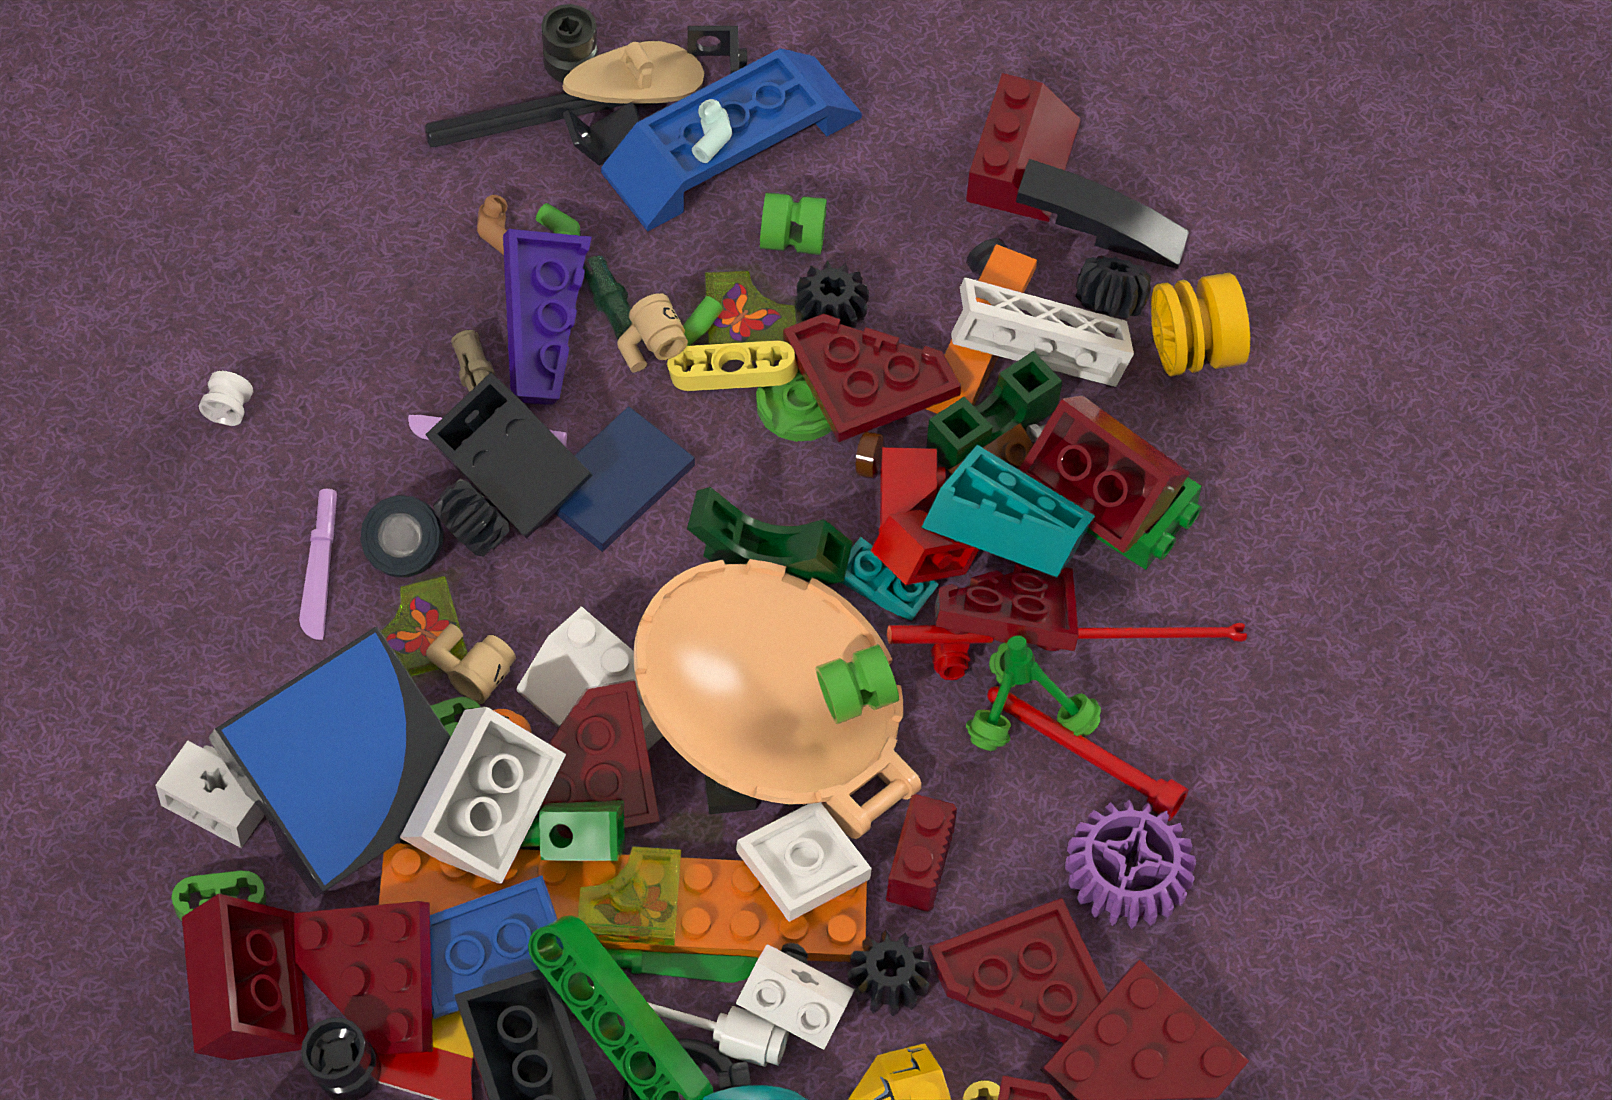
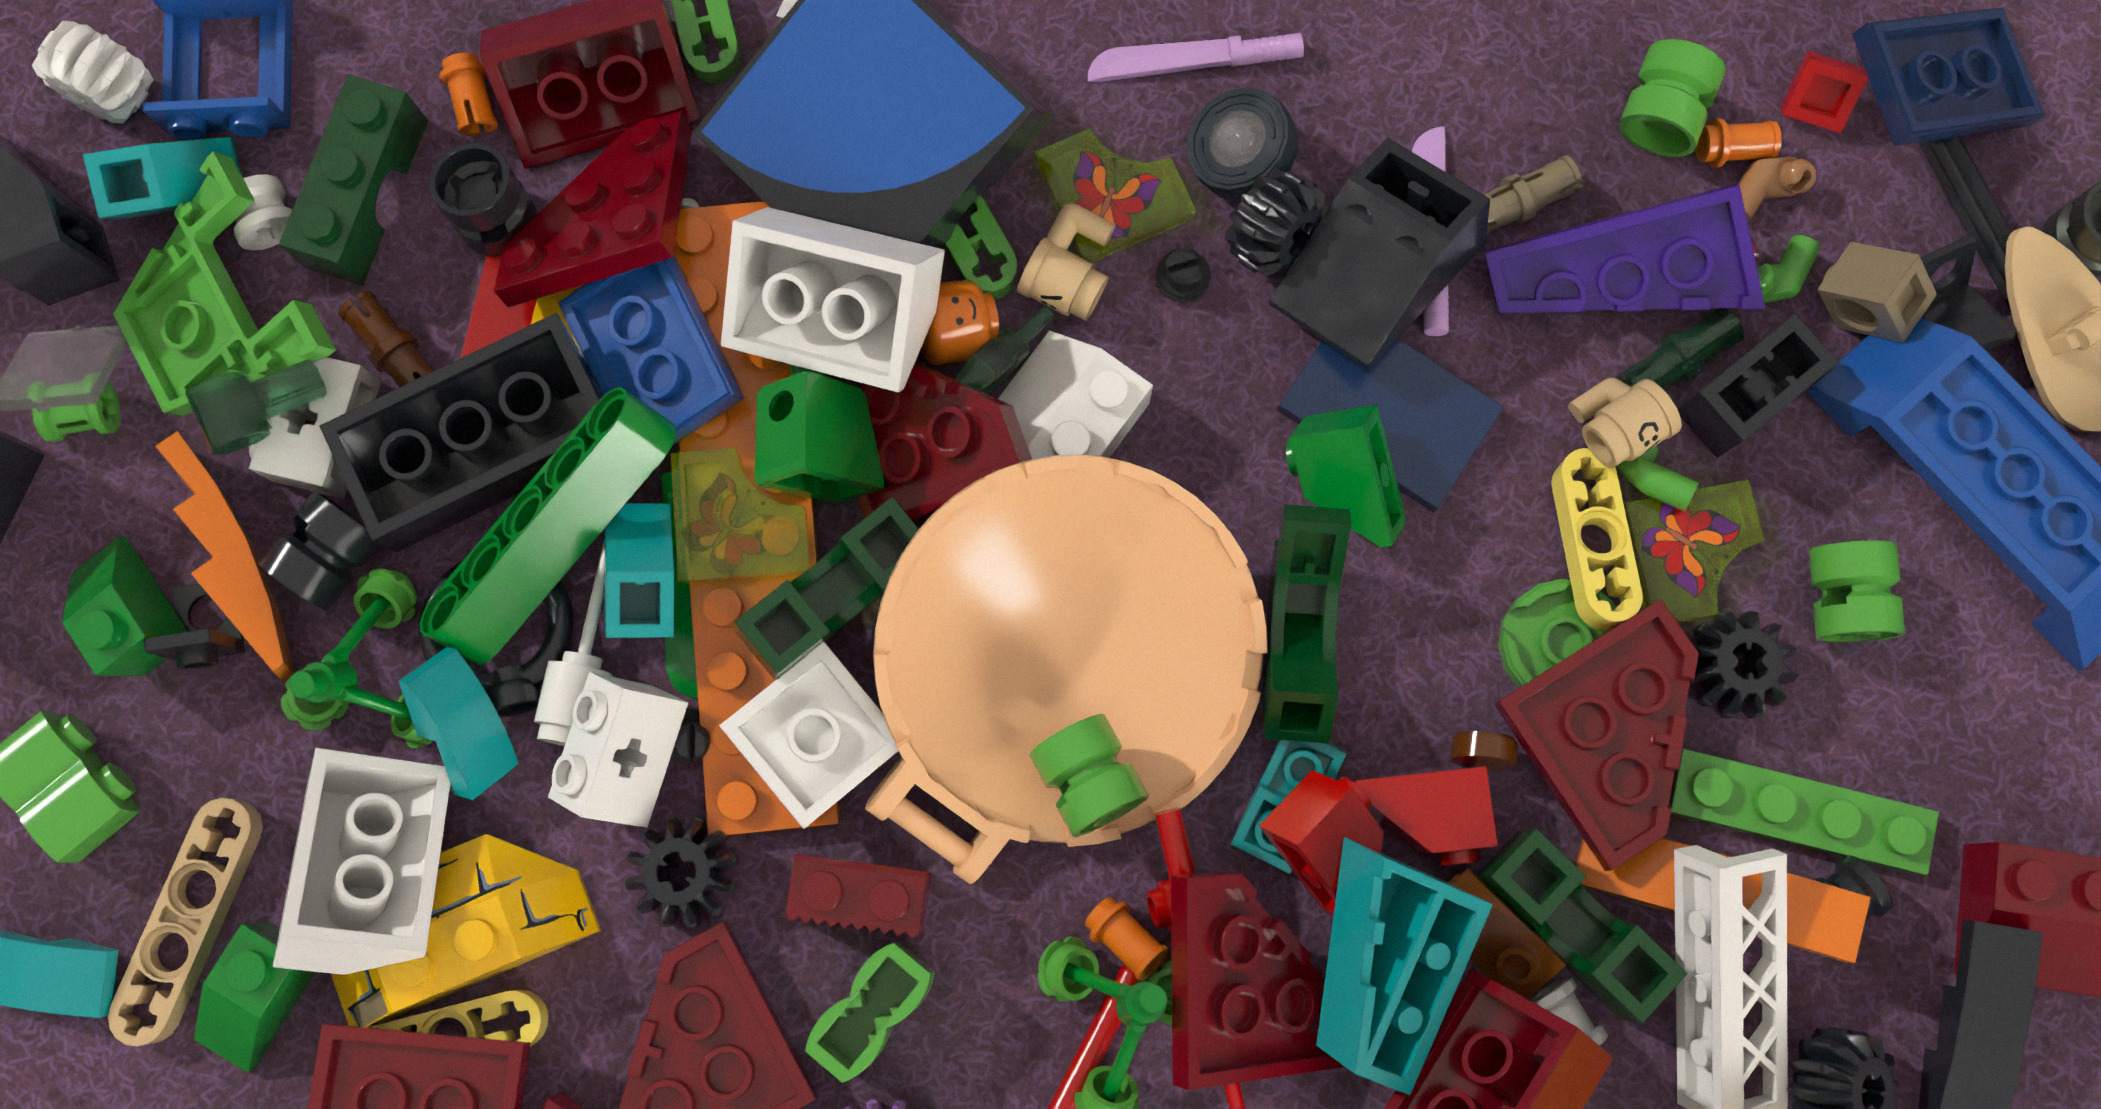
camera: 85 degrees right, 20 degrees up
(240, 1076) = (468, 92): none -> orange pin
(421, 265) = (1672, 101): none -> bright green wheel
(437, 180) = (1824, 91): none -> red plate
(443, 106) = (1948, 75): none -> dark blue tile
(460, 245) = (1737, 142): none -> orange pin
(490, 594) = (1183, 275): none -> black piece
(537, 714) = (1002, 355): none -> clear green hand
(589, 174) = (1877, 291): none -> dark tan brick
(643, 251) = (1757, 386): none -> black brick
(655, 502) = (1348, 466): none -> green slope
(670, 969) = (639, 572): none -> teal slope
(715, 128) = (1981, 450): light aqua arm -> none
(717, 851) = (828, 594): none -> dark green arch
(936, 279) = (1803, 812): none -> bright green plate
(970, 690) = (1125, 937): none -> orange pin
(996, 844) = (859, 1026): none -> bright green brick

